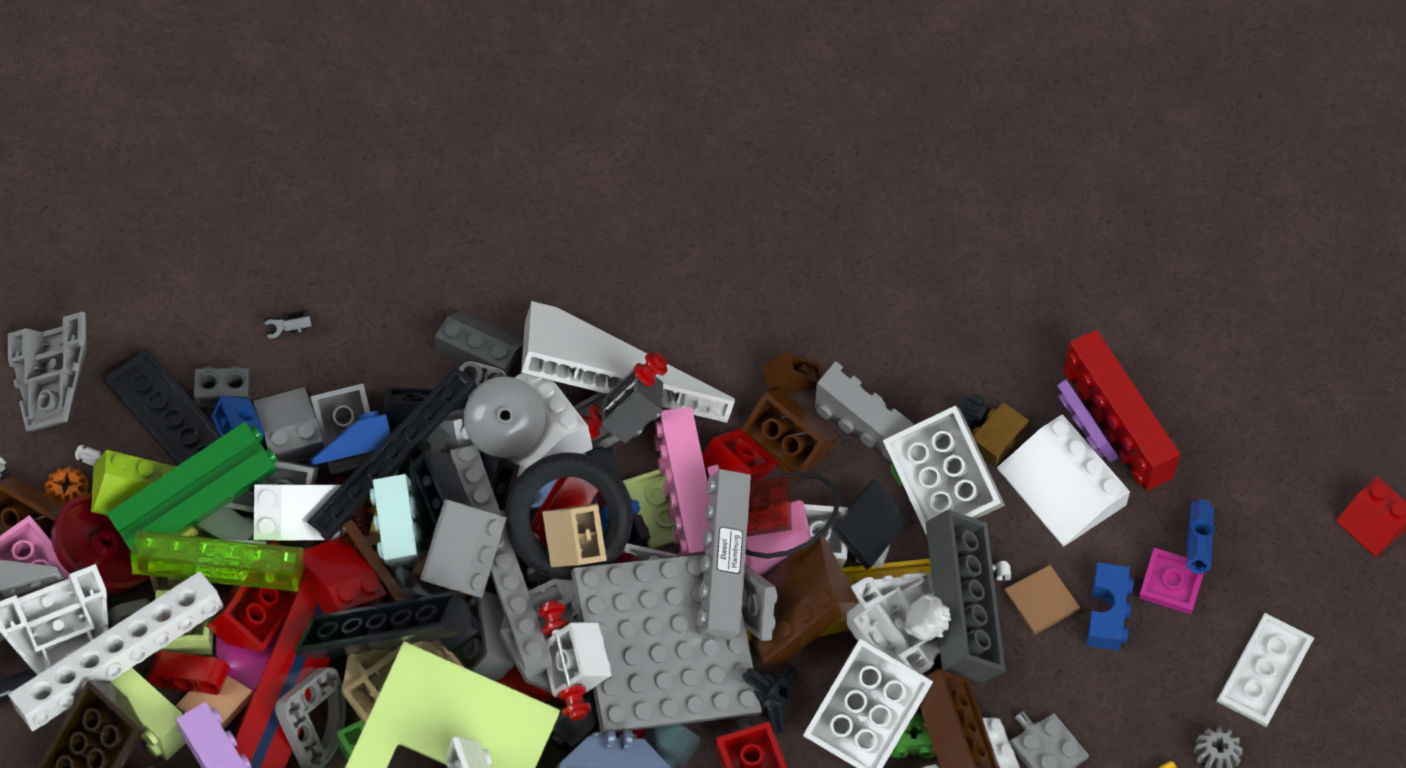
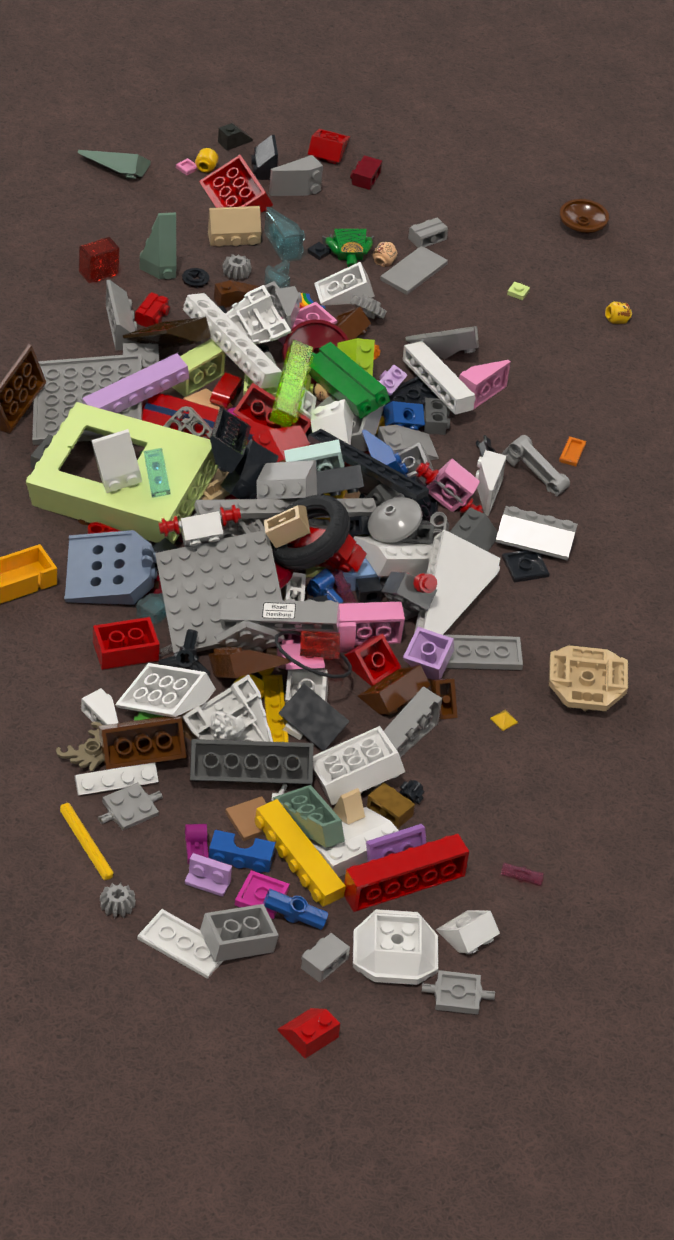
camera: 90 degrees right, 15 degrees down
(88, 455) = (387, 361): white piece -> none
(153, 376) = (438, 377): none -> white brick
(154, 445) = (392, 379): none -> lavender bracket
(163, 325) = (486, 380): none -> bright pink slope
(277, 217) = (572, 451): none -> orange tile
(307, 269) = (523, 450): none -> light grey piece
(373, 313) = (490, 478): none -> white slope
(397, 355) = (450, 485): none -> bright pink brick
(466, 723) = (157, 472): none -> clear light blue tile
(468, 260) = (536, 532): none -> slope
(519, 279) = (525, 565): none -> black tile
(700, 329) = (486, 652): none -> light grey plate
(736, 380) = (430, 651): none -> lavender slope
(748, 180) = (588, 677): none -> tan piece
(816, 308) = (504, 720): none -> yellow slope
(1017, 482) = (350, 807): none -> tan slope
(1051, 518) = (313, 816): none -> sand green wedge
(1081, 288) = (522, 874): none -> clear pink pin
(1098, 663) = (196, 840): none -> magenta plate
(1102, 537) = (299, 853): none -> yellow brick
(1160, 644) = (208, 875): none -> lavender bracket
(1186, 347) = (469, 930): none -> white slope
(1229, 448) = (395, 947): none -> white piece
(1255, 597) = (239, 932): none -> light grey brick
(1263, 503) = (325, 957): none -> light grey brick
(1282, 358) = (458, 992): none -> light grey plate

